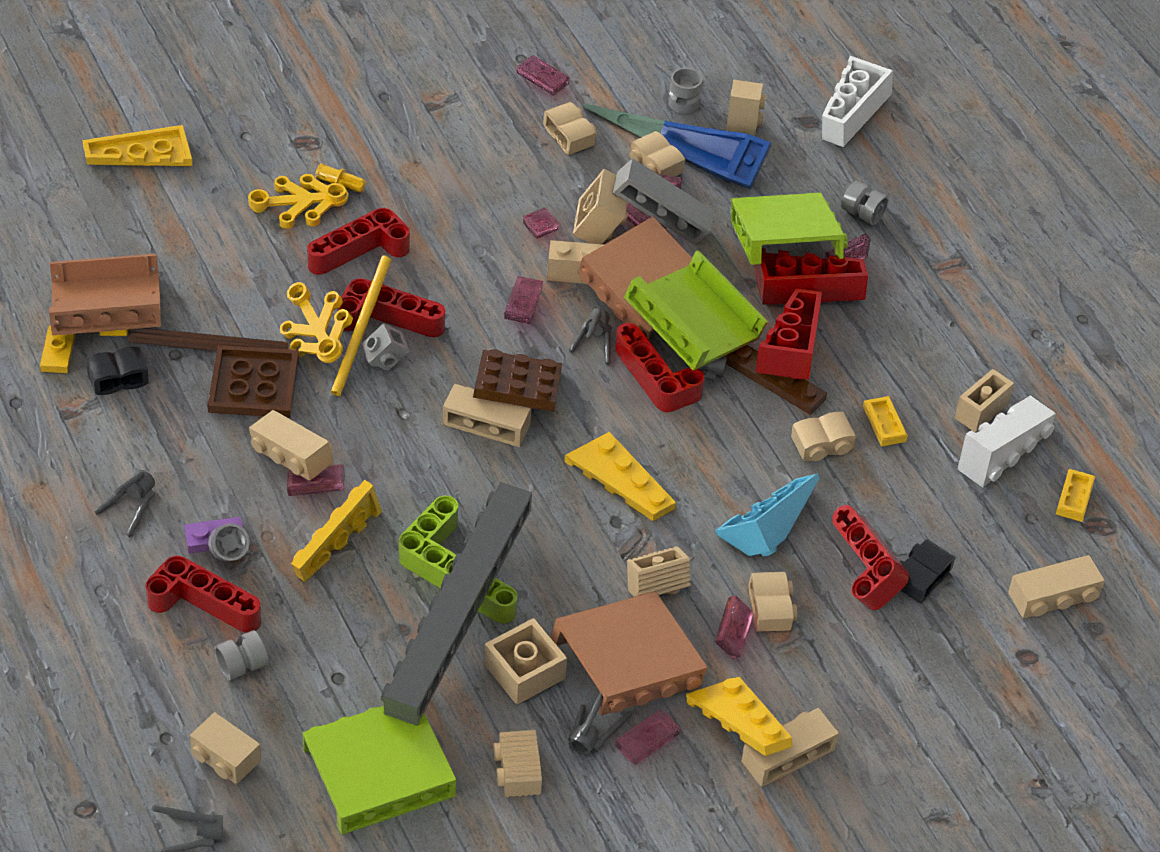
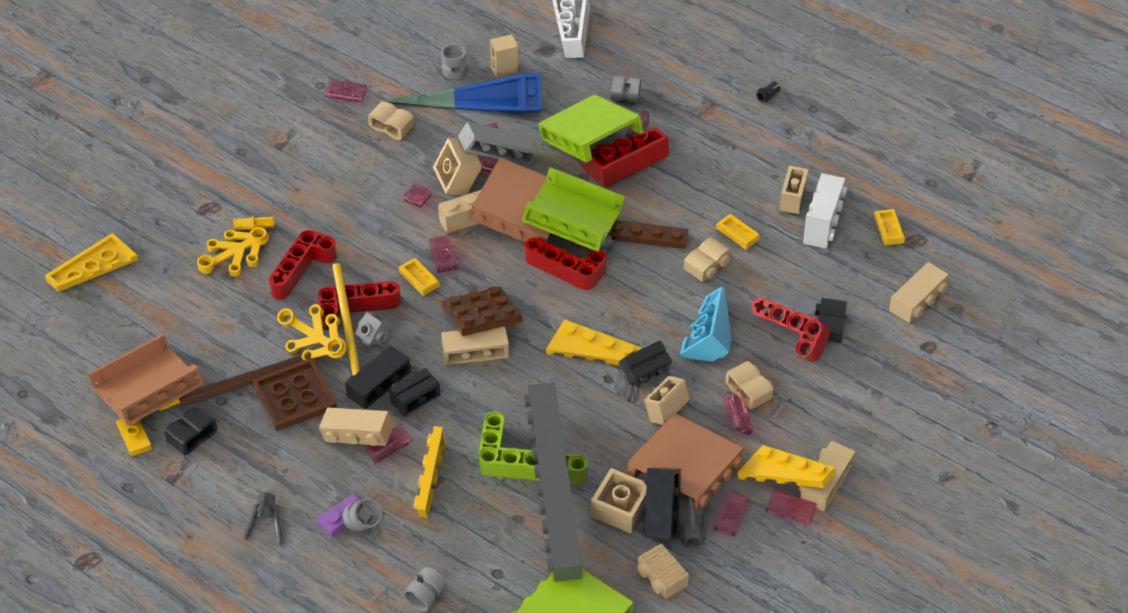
camera: 25 degrees left, 0 degrees up
(211, 593) = (397, 559): red beam -> none
(355, 403) = (377, 377): none -> black brick
(383, 436) = (414, 391): none -> black brick
(479, 313) = (419, 277): none -> yellow plate
(564, 684) = (662, 502): none -> black brick
(595, 325) = (505, 250): dark grey plant -> none
(658, 155) = (461, 111): tan brick -> none
(665, 521) = (645, 362): none -> black brick
(723, 763) = (791, 507): none -> clear pink plate
(792, 339) = (648, 200): red wedge -> none
(1038, 275) = (765, 93): none -> black pin

